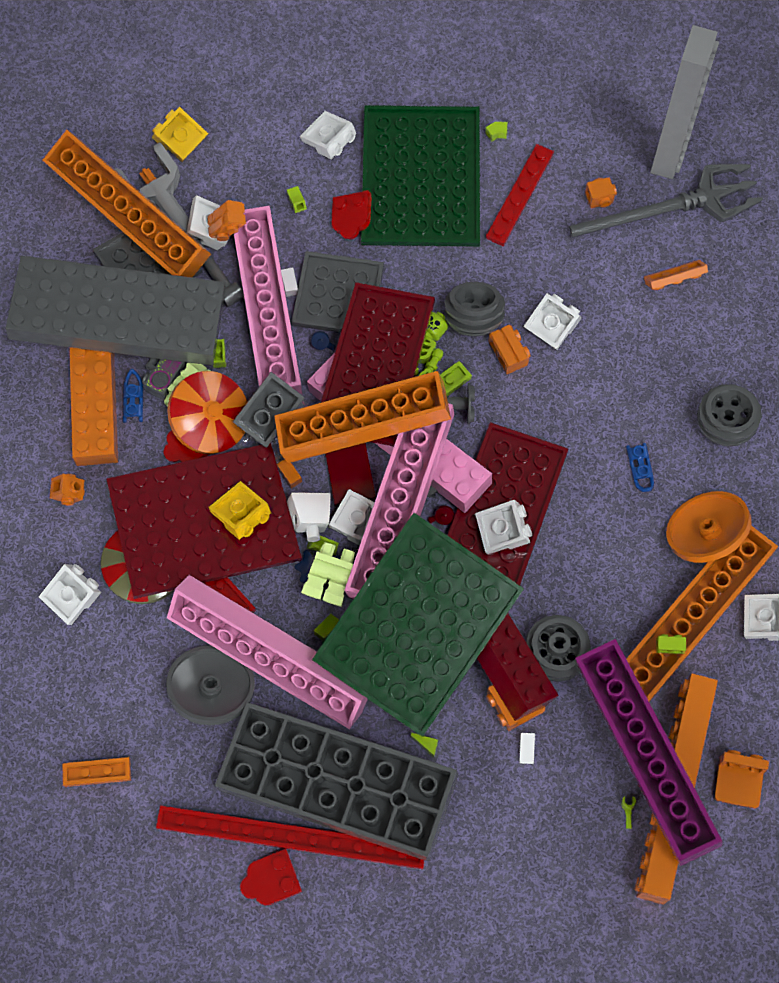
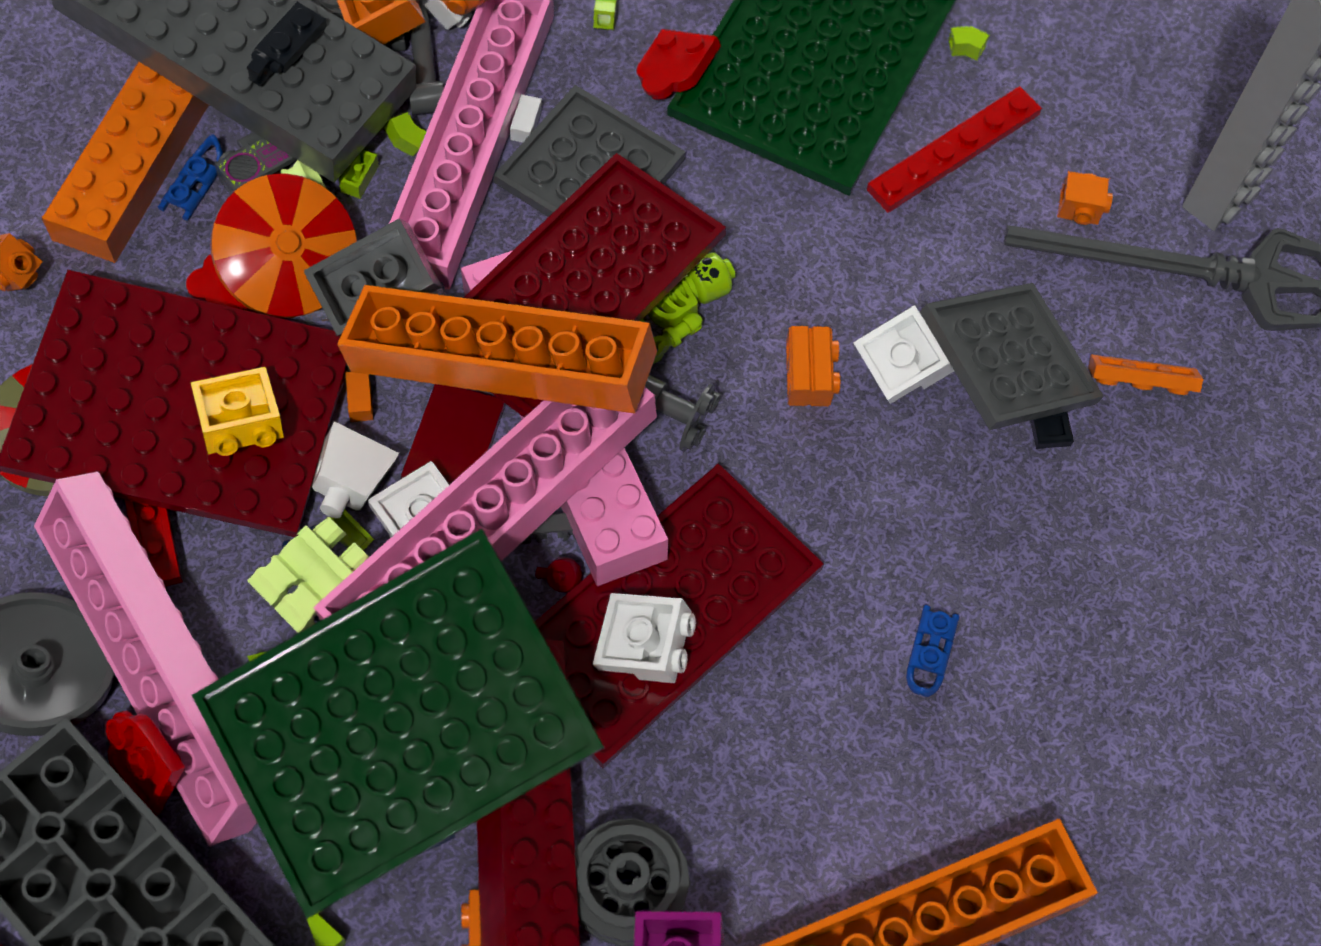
camera: 20 degrees right, 5 degrees down
(153, 302) = (285, 43): none -> black hinge
(232, 320) = (405, 134): none -> lime piece
(293, 701) = (143, 758): none -> red plate
(321, 340) = (522, 221): dark blue piece -> none
(455, 377) = (691, 370): lime plate -> none
(474, 308) = (785, 277): dark grey wheel -> none
(607, 296) = (1011, 355): none -> dark grey plate
(643, 325) = (1052, 431): none -> black tile
(708, 526) = (992, 802): orange dish -> none
(724, 431) = (1104, 659): dark grey wheel -> none

